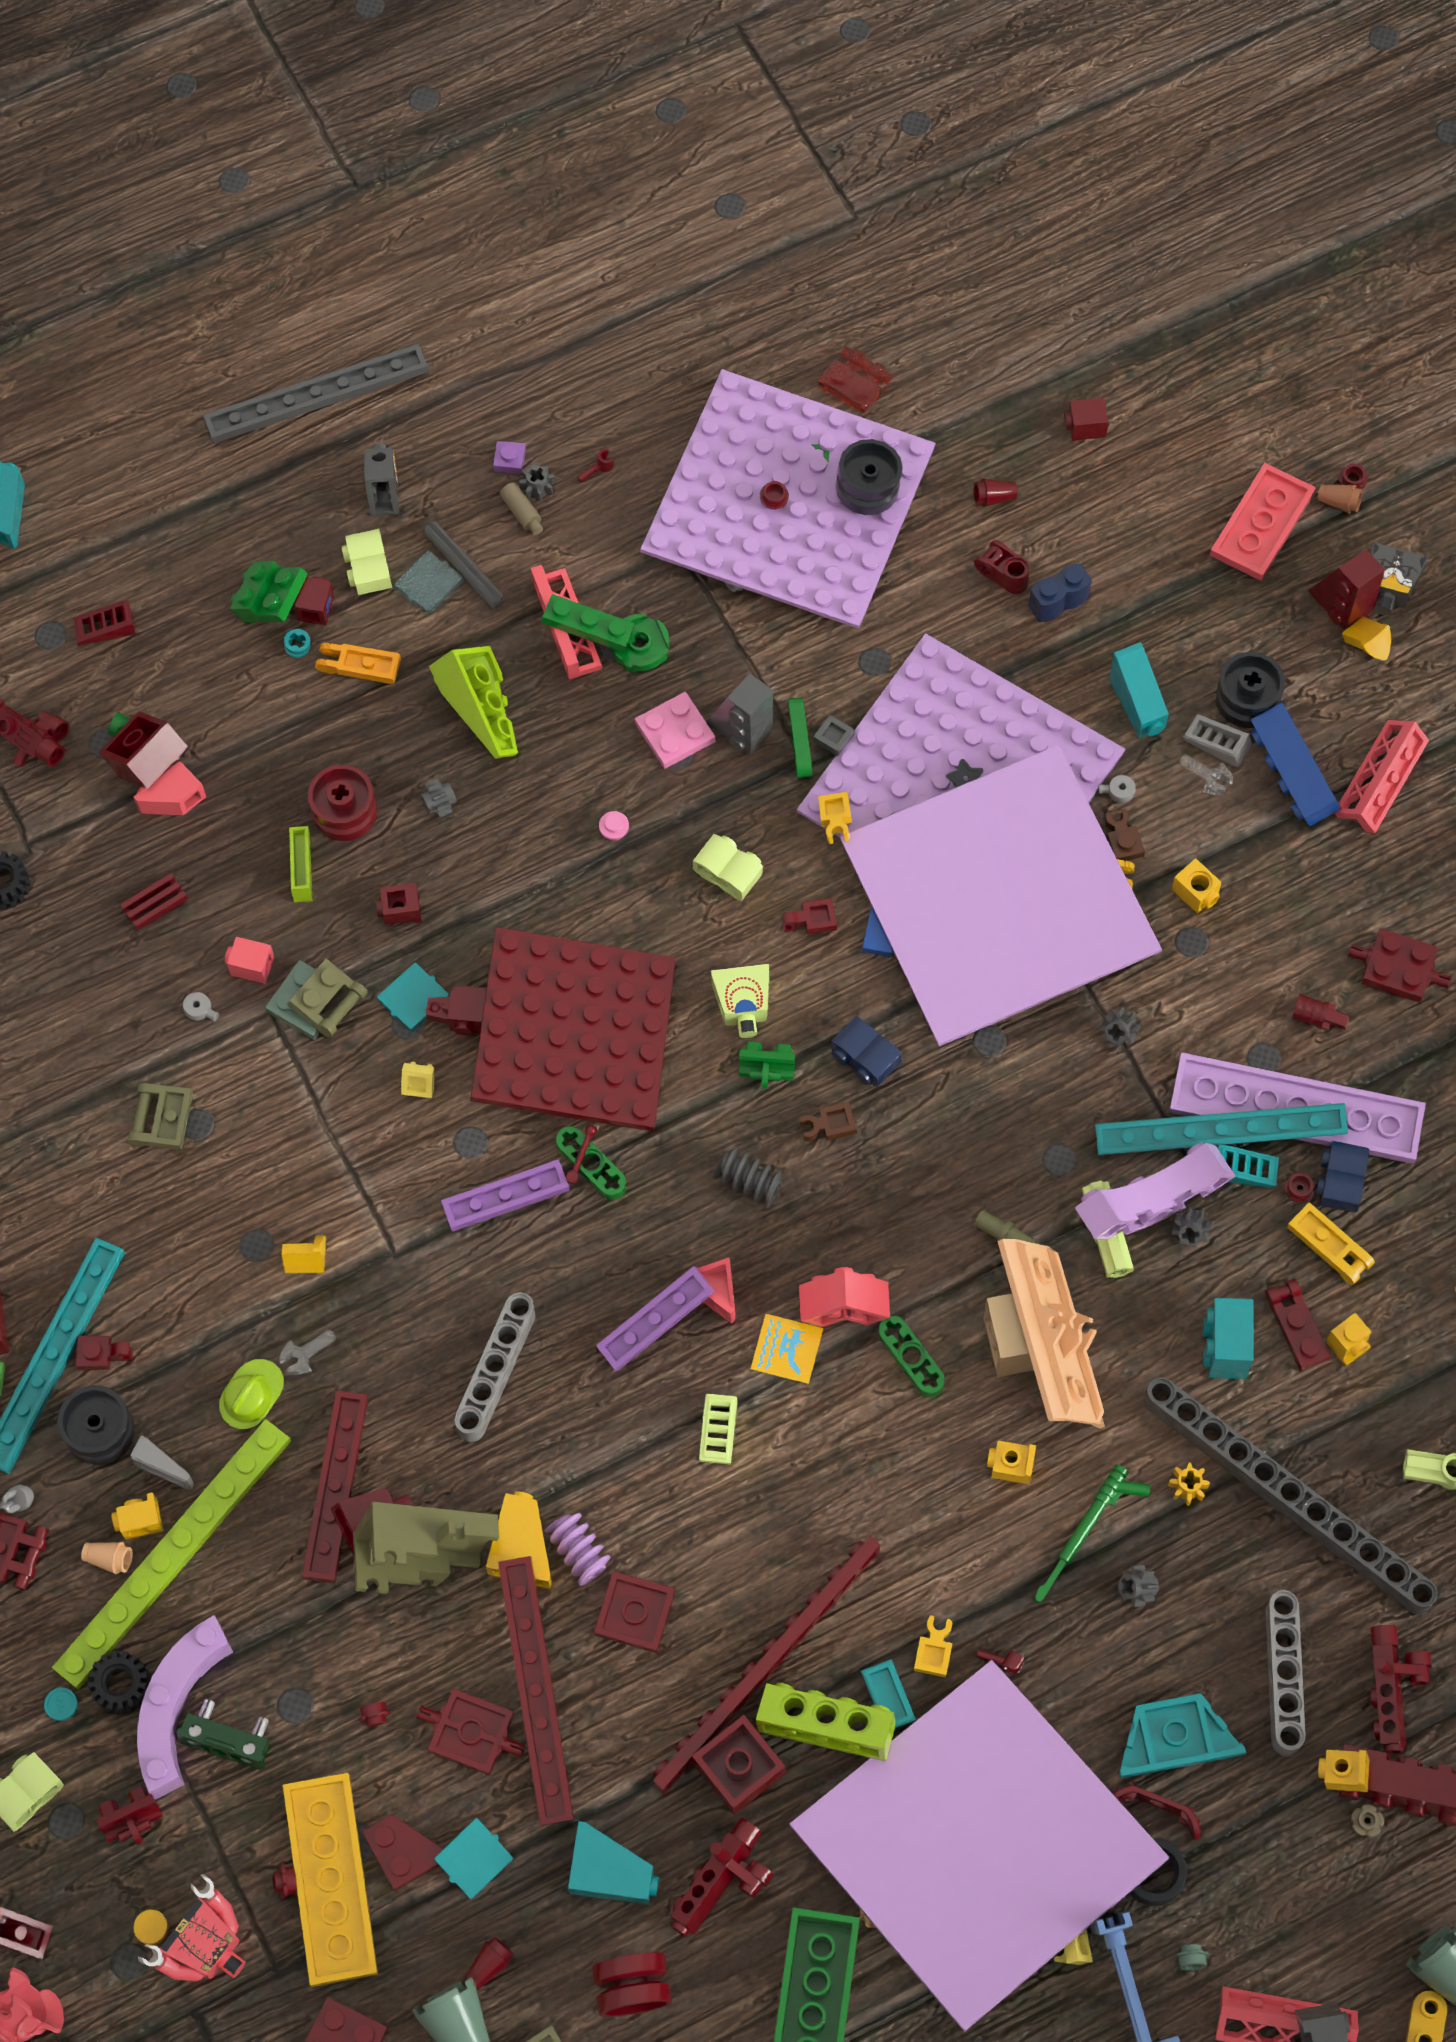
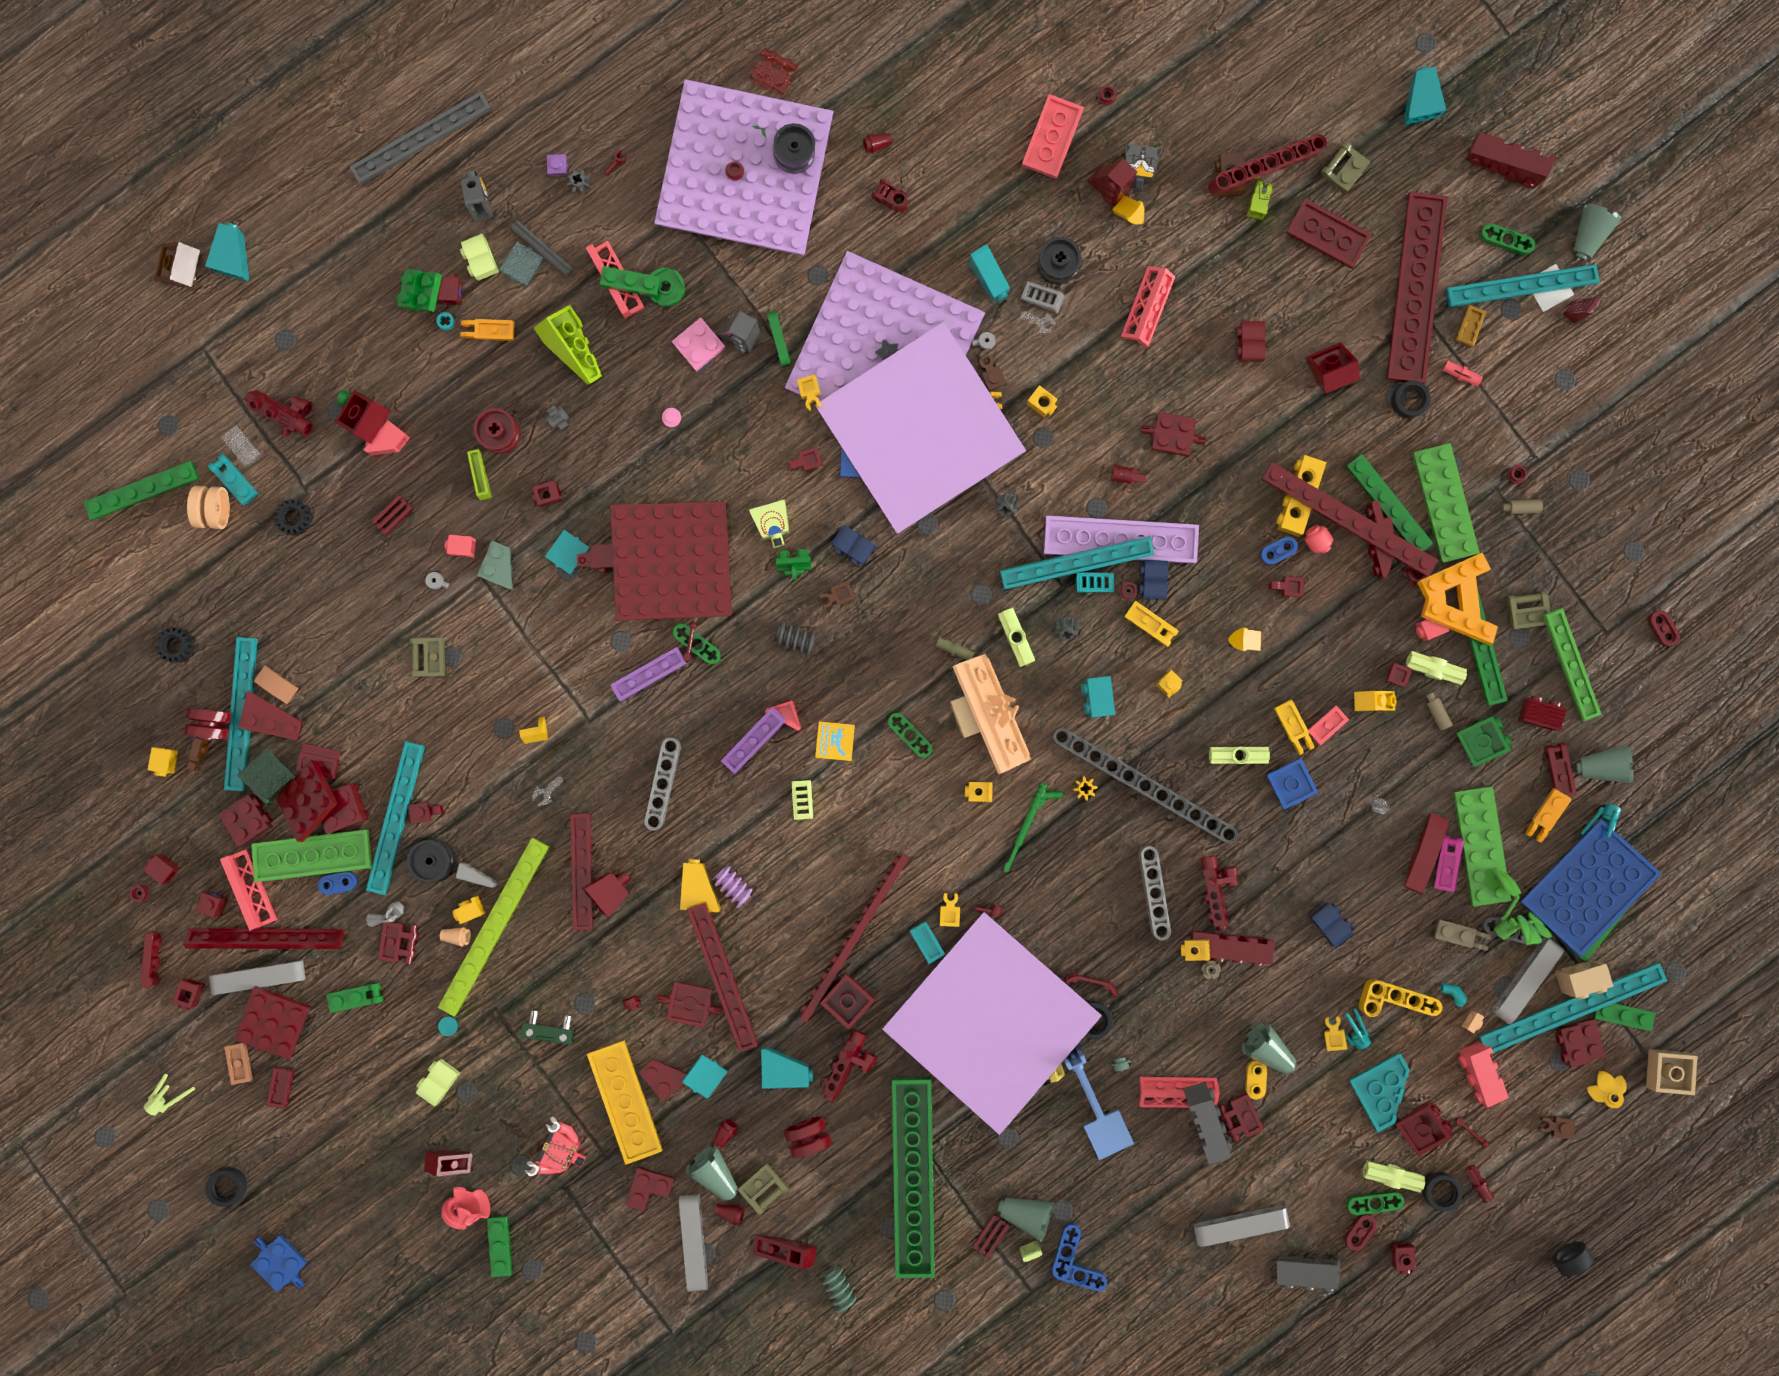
camera: 15 degrees left, 20 degrees up
(105, 1669) = (470, 1018): black tyre -> none
(116, 630) = (333, 328): dark red slope -> none
(130, 1819) = (504, 1089): dark red hips -> none
(151, 1927) = (528, 1145): yellow tile -> none
(166, 1698) = (507, 1019): lavender brick -> none
(251, 1393) = (520, 821): lime piece -> none
(284, 1881) = (599, 1108): dark red plate -> none
(319, 991) = (508, 561): olive plate -> none
(417, 1080) = (581, 609): light yellow tile -> none
(417, 1543) = (629, 909): olive piece -> none
(521, 508) = (572, 202): dark tan cylinder -> none
(634, 1612) = (772, 918): dark red plate -> none
(727, 866) = (748, 435): yellowish green brick -> none
(833, 735) = (800, 333): dark grey plate -> none
(844, 1297) = (864, 708): coral brick -> none
(870, 1742) = (923, 974): lime brick -> none
(1061, 592) = (932, 208): dark blue brick -> none
(1087, 419) = (929, 79): dark red brick -> none
(1138, 1585) = (1063, 855): dark grey gear -> none
(1154, 1197) = (1042, 615): lavender brick -> none
(1175, 1736) = (1096, 939): teal wing -> none
(1295, 764) = (1093, 308): blue brick -> none
(1297, 1325) = (1137, 678): dark red plate -> none
(1341, 497) = (1101, 110): nougat cone -> none

